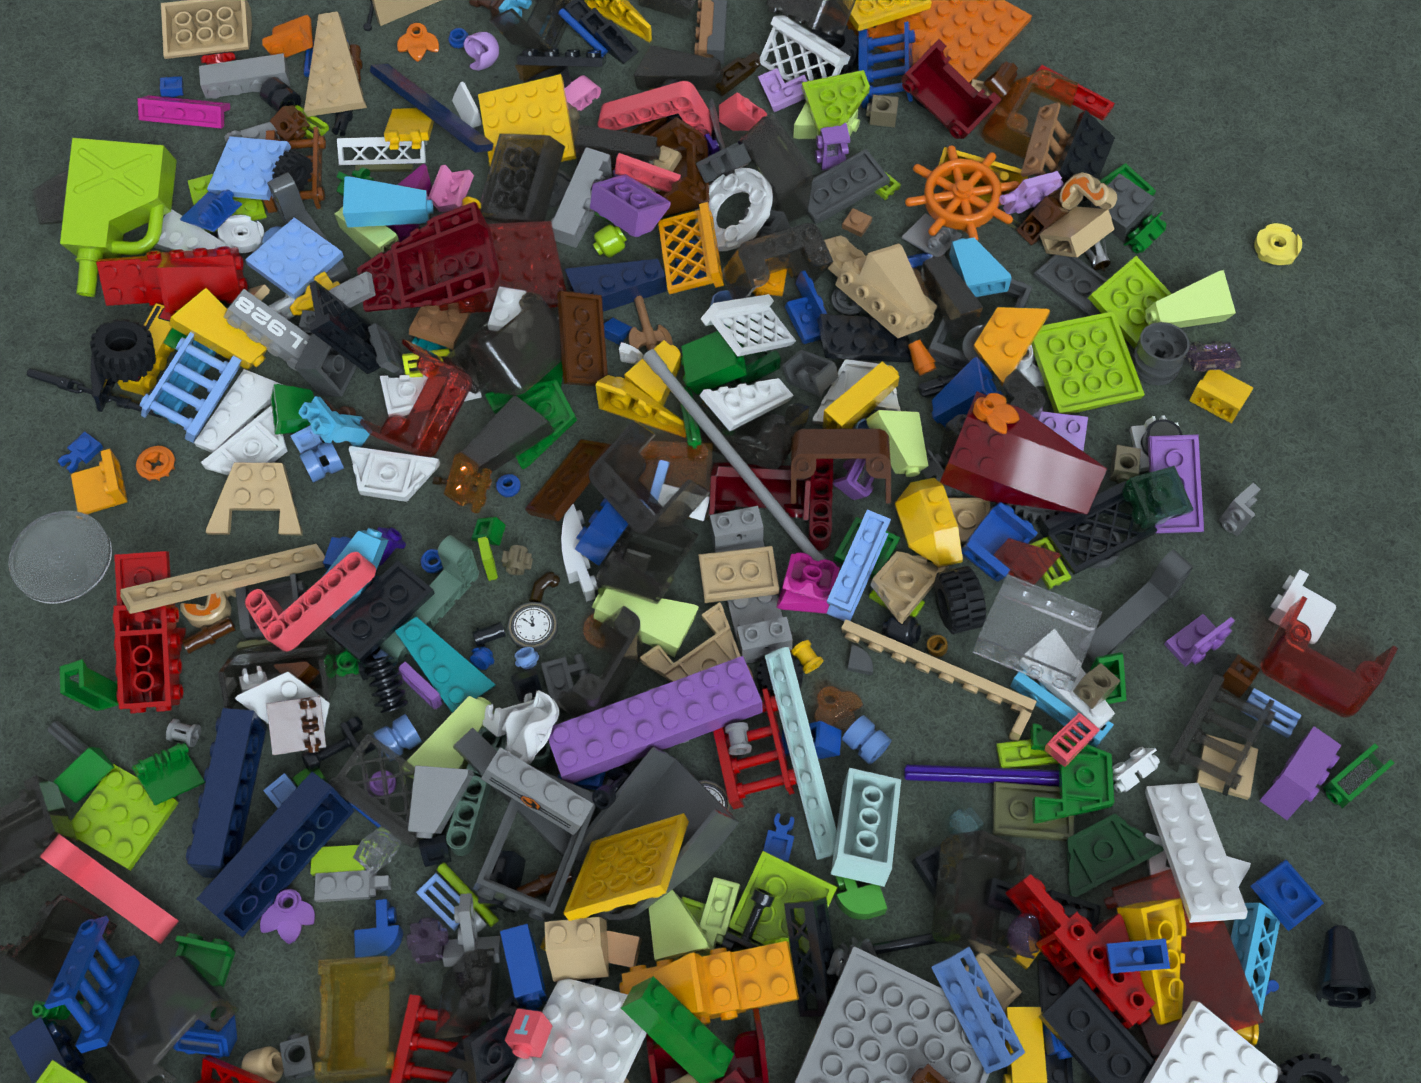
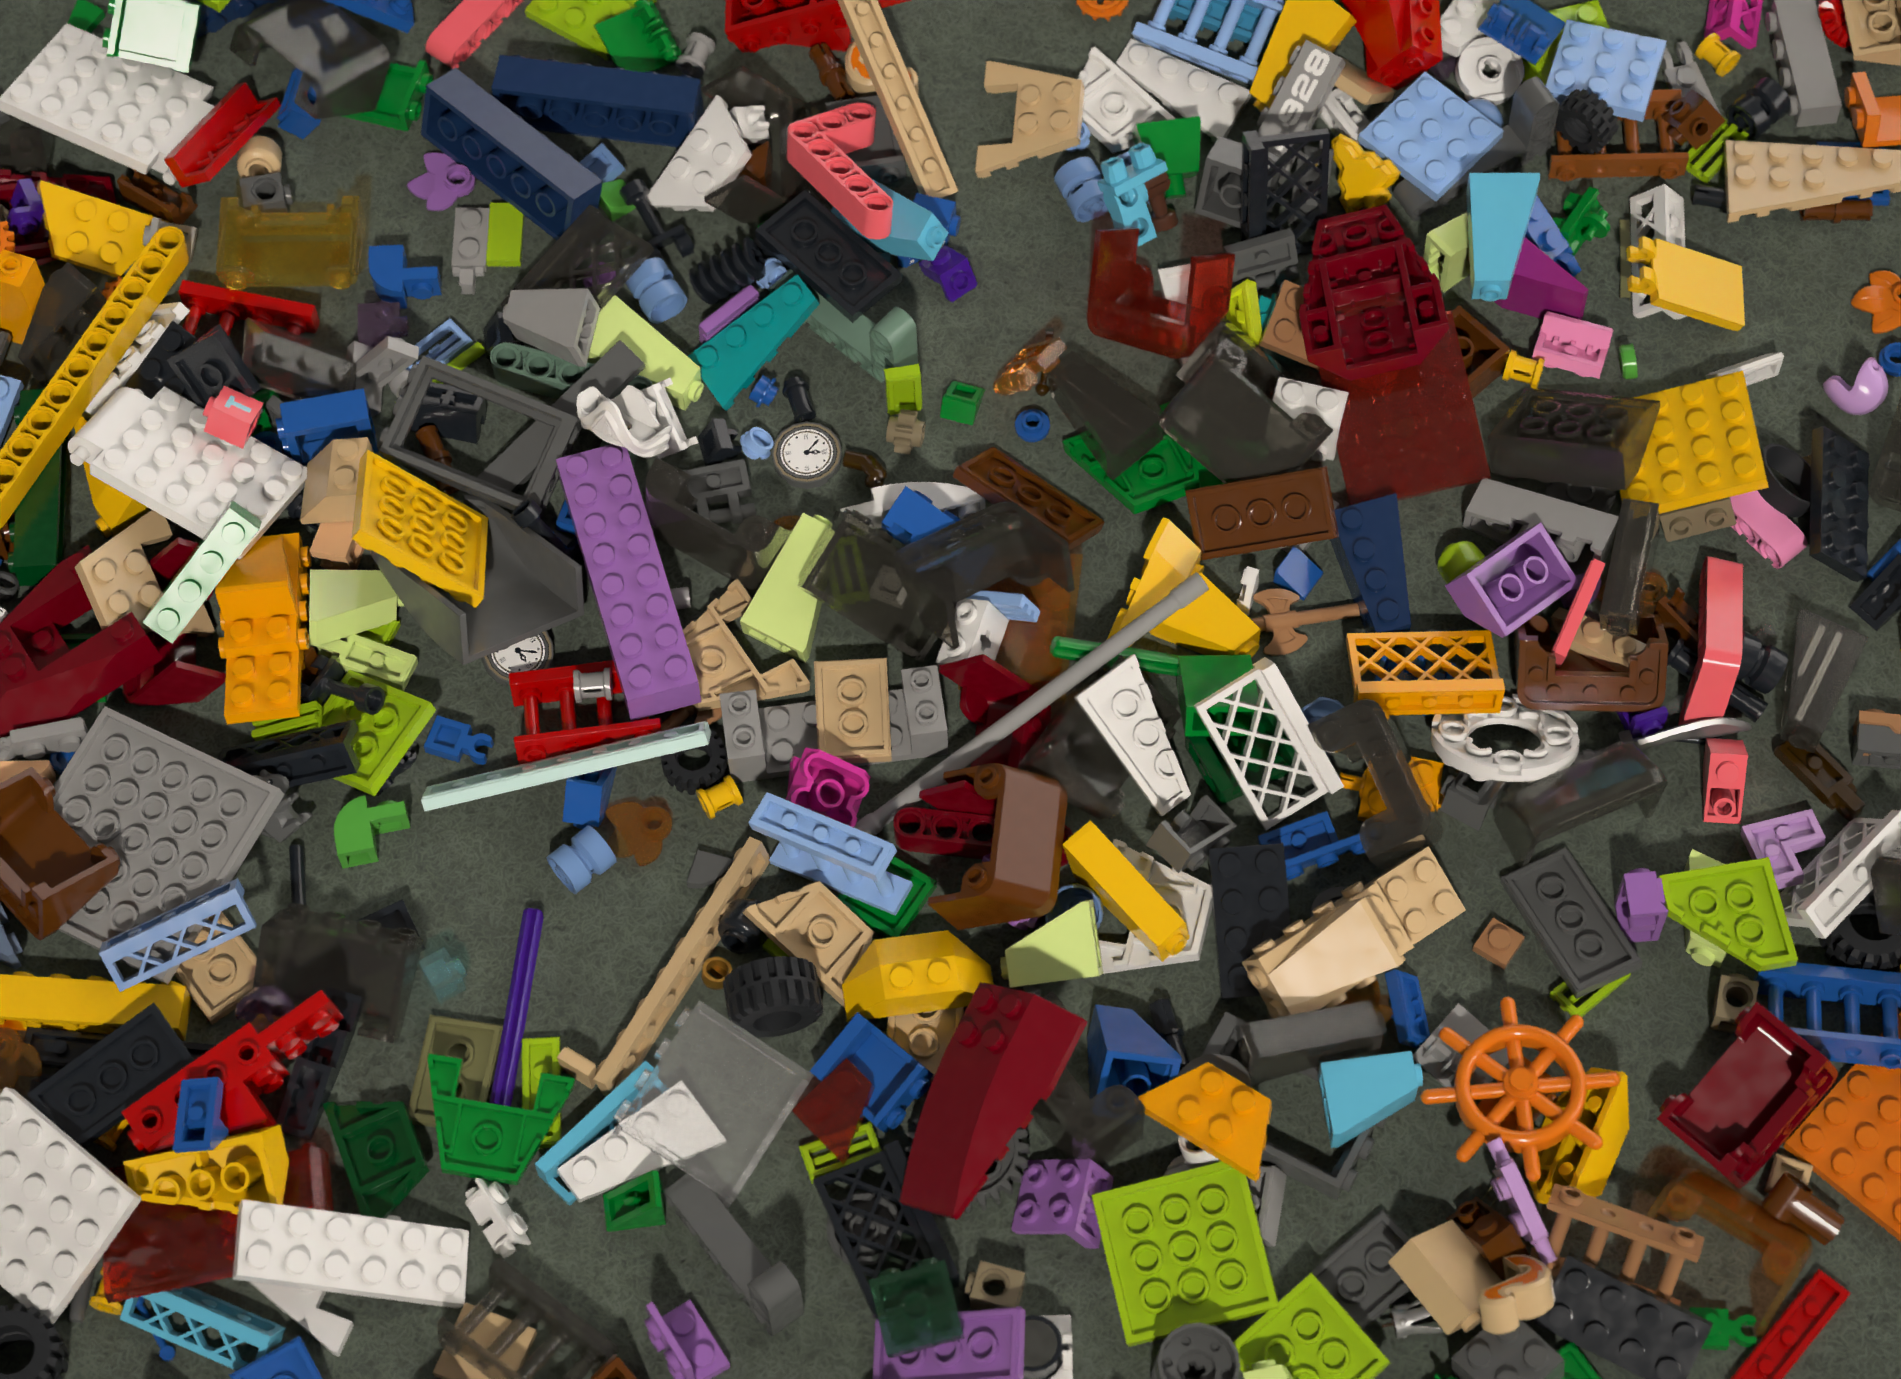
camera: 95 degrees right, 0 degrees up
(236, 118) = (1717, 54): none -> yellow bush
(296, 725) = (674, 167): hinge -> none
(355, 290) = (1345, 198): light grey hinge -> none
(377, 850) = (492, 263): clear brick -> none
(390, 473) = (1059, 278): white wing -> none
(427, 557) = (927, 326): blue plate -> none
(431, 108) = (1730, 313): dark blue tile -> none
(461, 161) = (1627, 361): none -> bright green tile
(537, 791) = (532, 423): light grey brick -> none
(723, 162) = (1588, 721): dark grey window -> none
(866, 827) = (447, 833): light aqua brick -> none
(921, 358) = (1208, 1008): orange cone -> none
(995, 412) = (1036, 1040): orange plate -> none
(1058, 753) = (522, 1099): coral slope -> none
(1069, 117) = (1725, 1329): none -> green plate
(1096, 686) = (628, 1170): dark tan brick -> none

